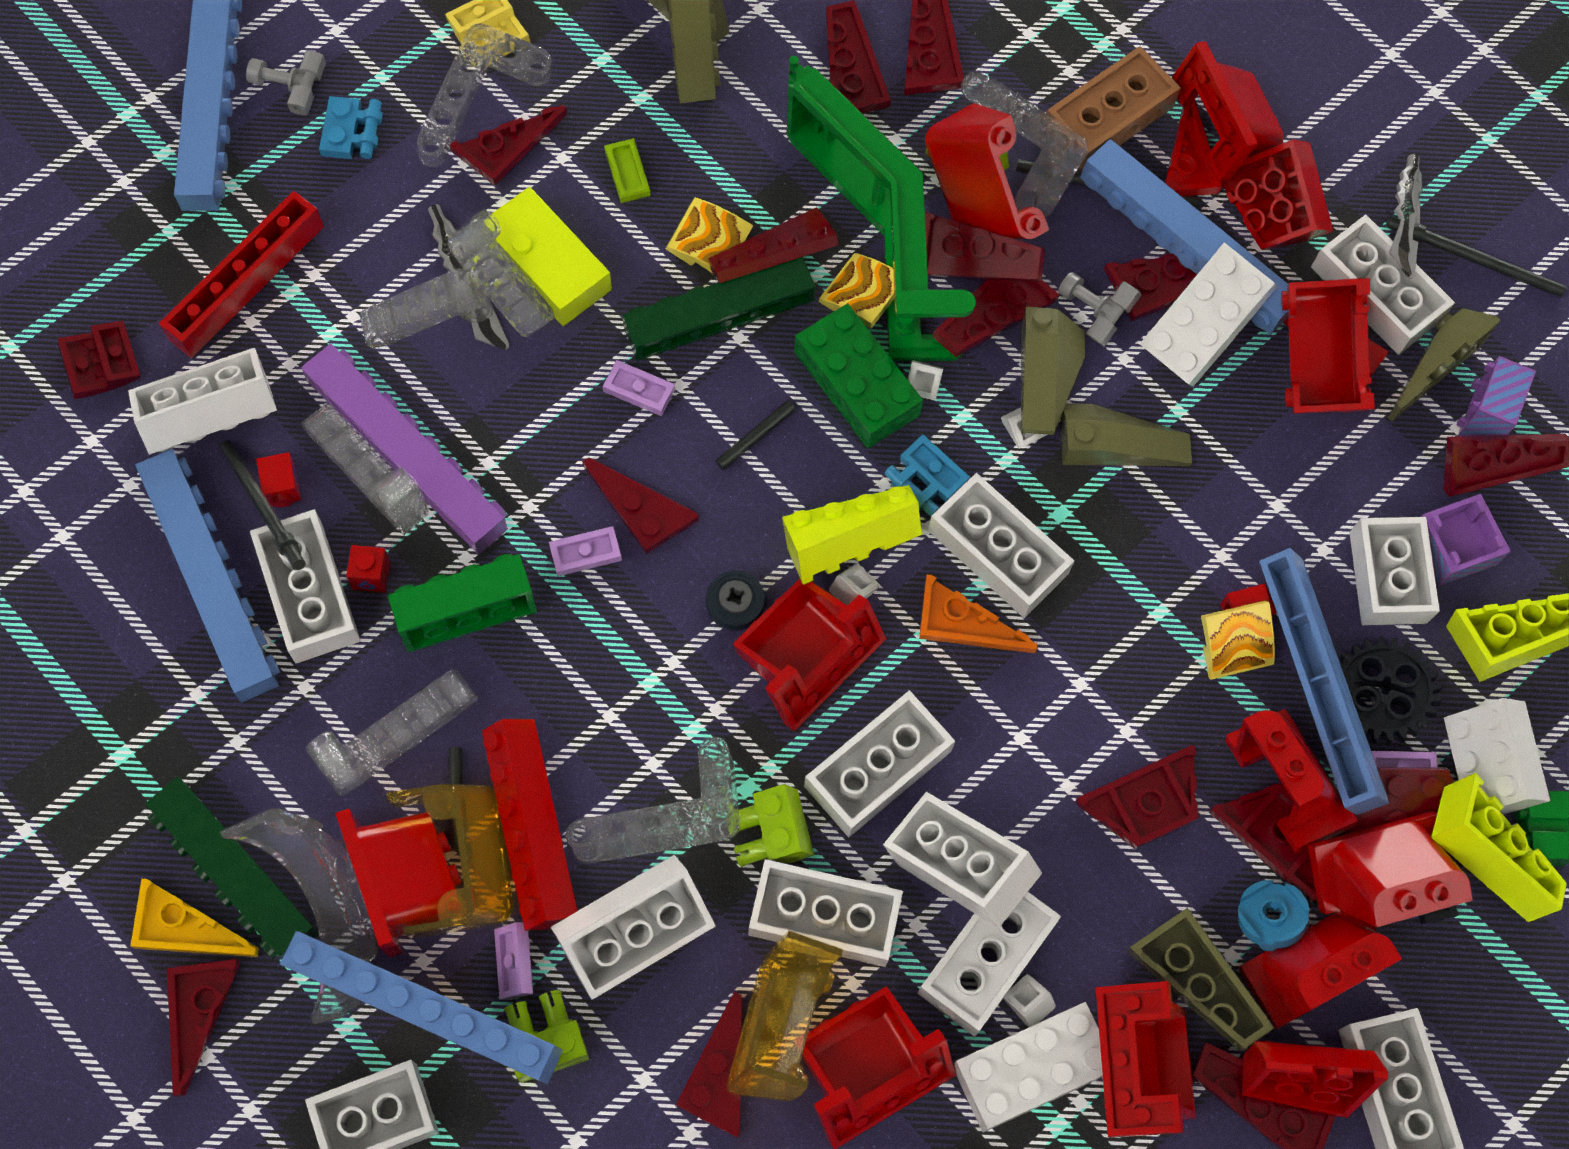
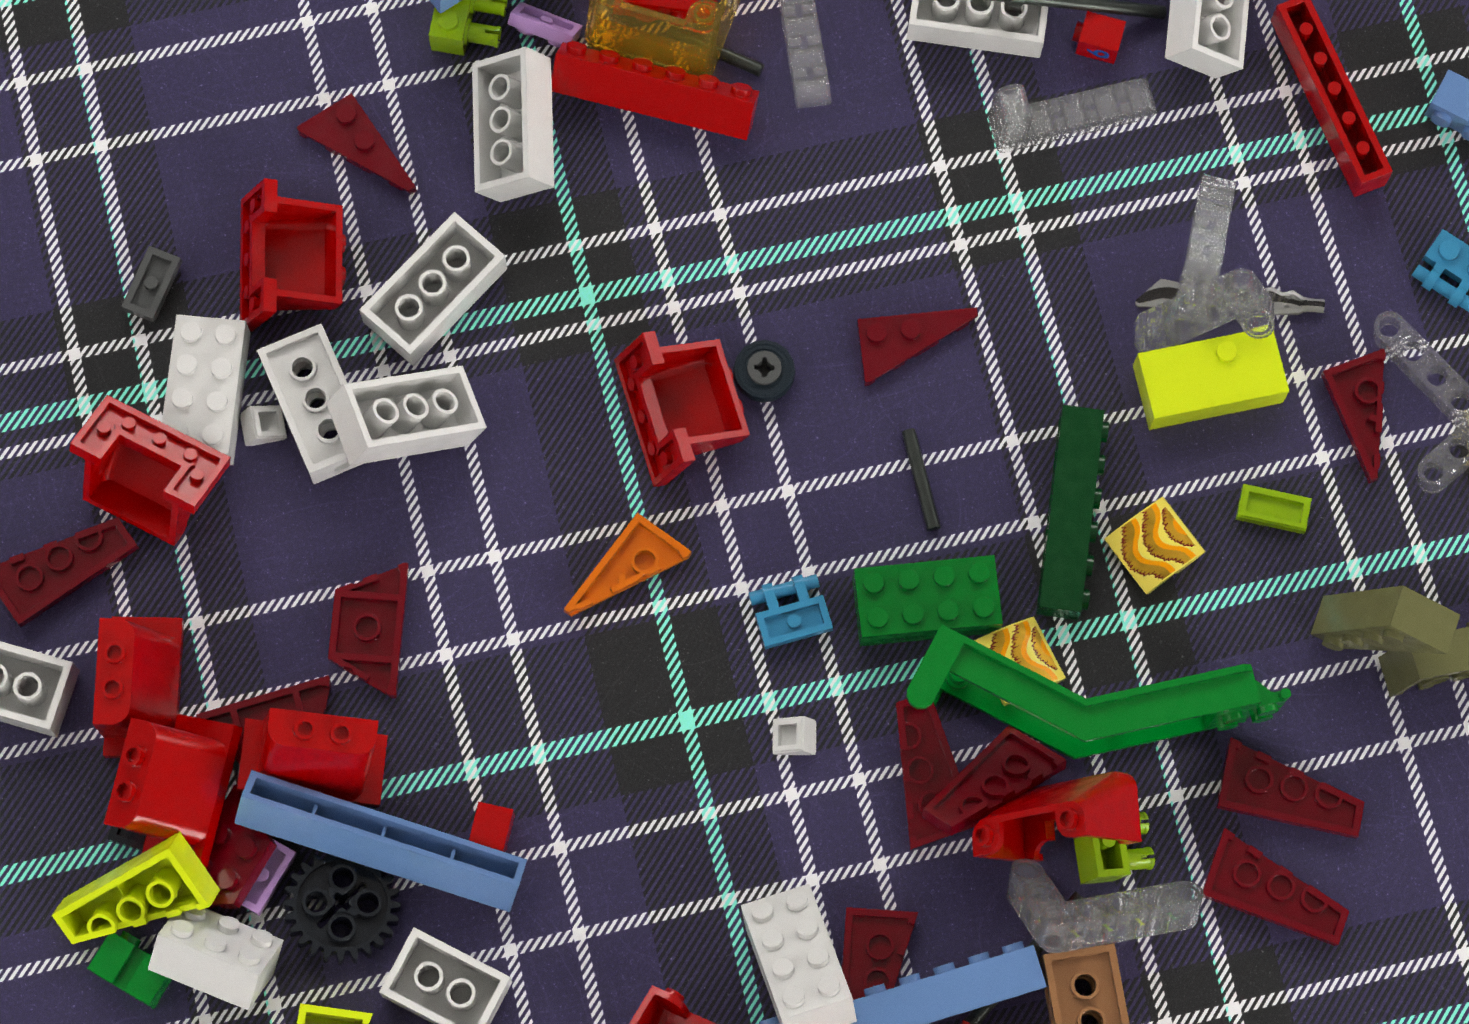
camera: 120 degrees right, 5 degrees up
(368, 568) = (968, 71): red brick -> none
(401, 444) = (1074, 158): medium lavender brick -> none
(462, 602) = (888, 129): green brick -> none
(585, 551) = (885, 265): lavender plate -> none
(639, 388) = (1025, 395): lavender plate -> none
(666, 818) = (586, 202): clear beam -> none
(778, 245) = (1104, 603): dark red wing -> none
(780, 1018) = (355, 192): clear yellow windscreen -> none
(782, 827) = (530, 294): lime brick -> none
(850, 529) = (770, 499): neon yellow wedge -> none
(852, 583) = (720, 487): white slope -> none
(879, 763) = (537, 406): white brick -> none
(925, 379) = (893, 669): white slope -> none
(1000, 545) = (680, 630): white brick -> none
(1049, 367) = (840, 790): olive wedge -> none
(1106, 309) = (867, 881): light grey bar -> none
(1116, 439) = (737, 810): olive wedge -> none
(1202, 978) = (189, 571): olive wedge -> none
(1238, 639) = (466, 795): slope -> none
(1268, 932) = (190, 683): dark azure plate -> none
(1312, 1076) = (56, 598): red wedge -> none

